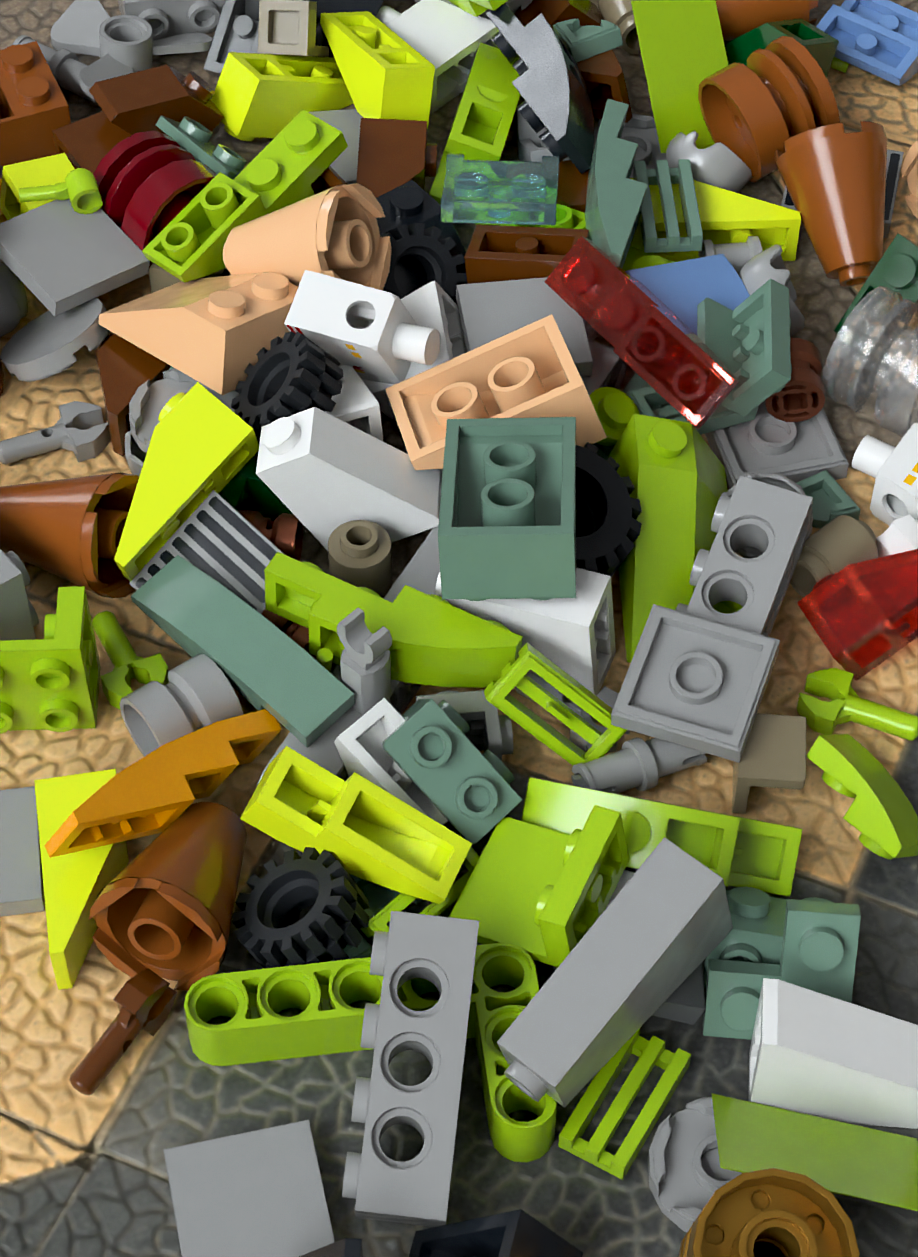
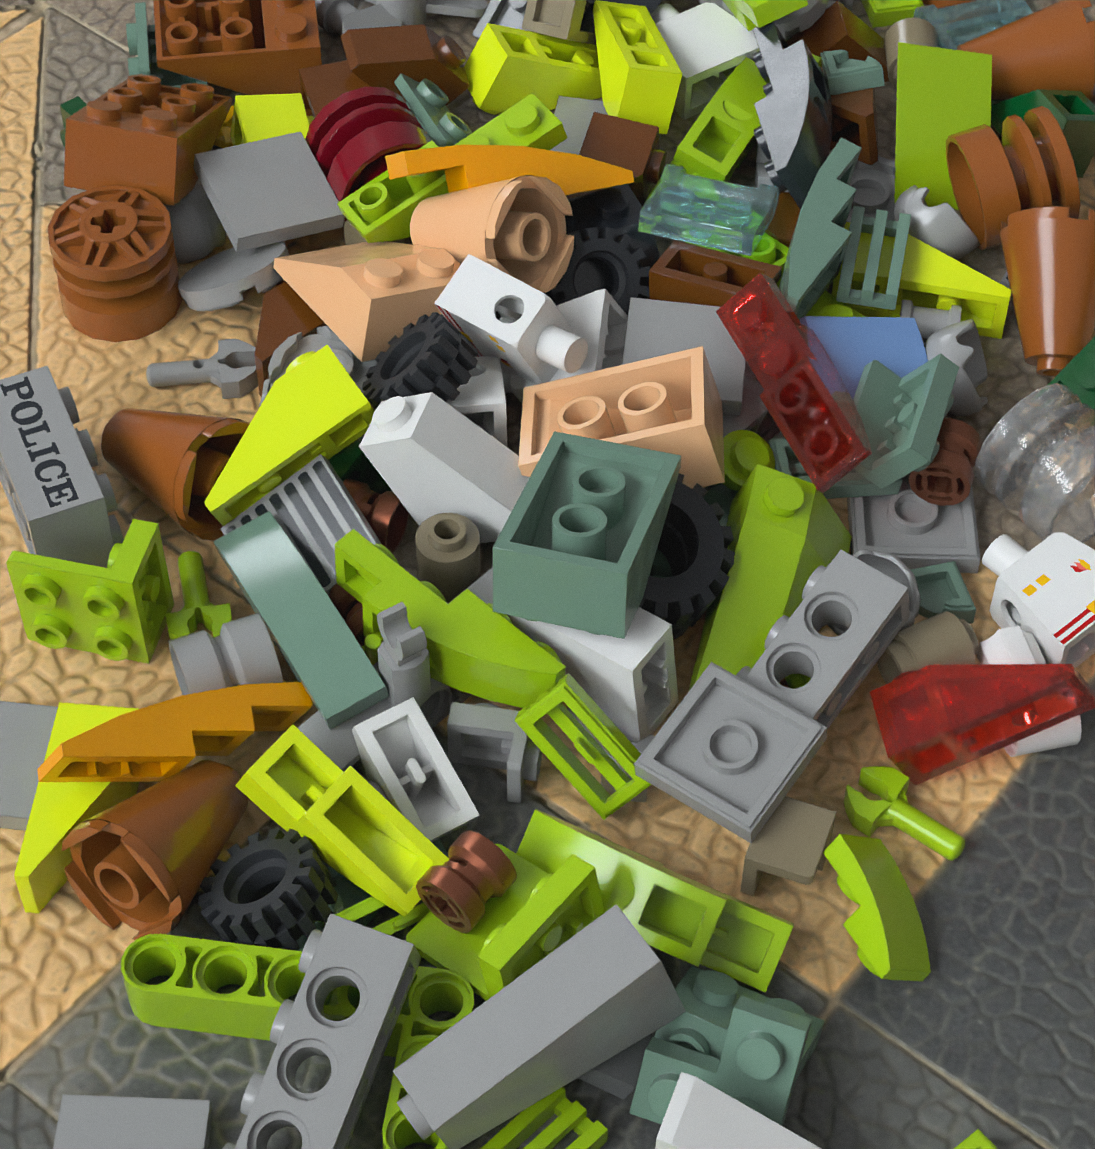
camera: 15 degrees right, 0 degrees up
(78, 187) = (294, 131): lime hand -> none
(142, 1005) = (90, 947): reddish brown bar -> none
(289, 183) = (484, 164): none -> light orange slope
(450, 770) = (453, 780): sand green bracket -> none
(492, 861) = (466, 882): none -> copper wheel
(636, 765) = (652, 822): light grey pin -> none

